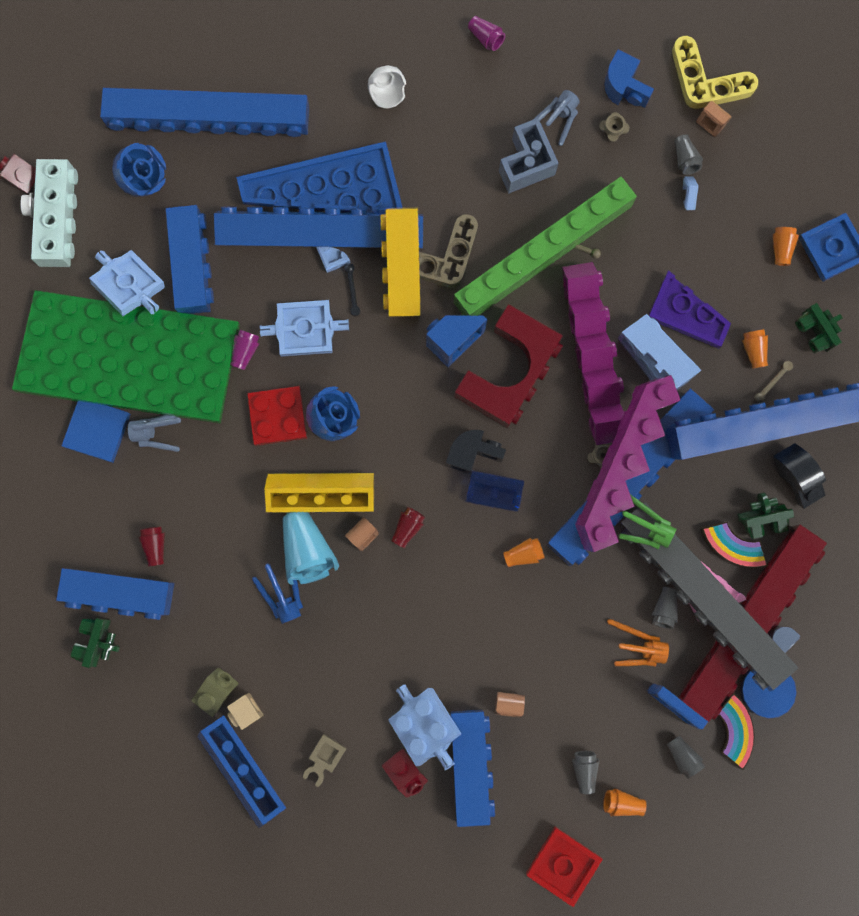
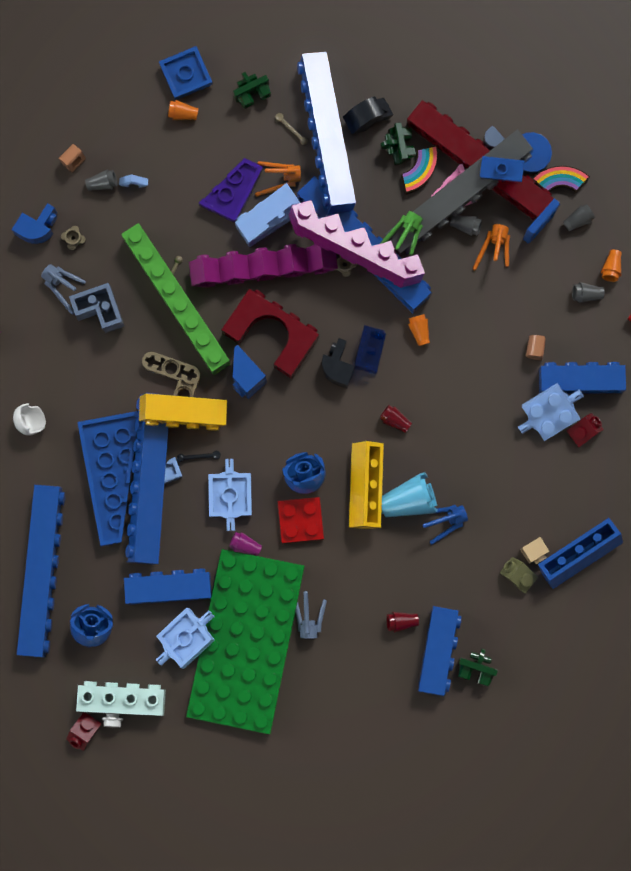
camera: 85 degrees left, 0 degrees up
(96, 430) = (305, 667): blue tile -> none
(326, 756) = (570, 488): dark tan plate -> none
(362, 534) = (399, 455): nougat brick -> none
(707, 87) = (44, 161): light yellow beam -> none
(715, 382) = (290, 173): none -> orange plant
(741, 649) = (502, 169): none -> blue plate
(756, 347) = (262, 139): orange cone -> none

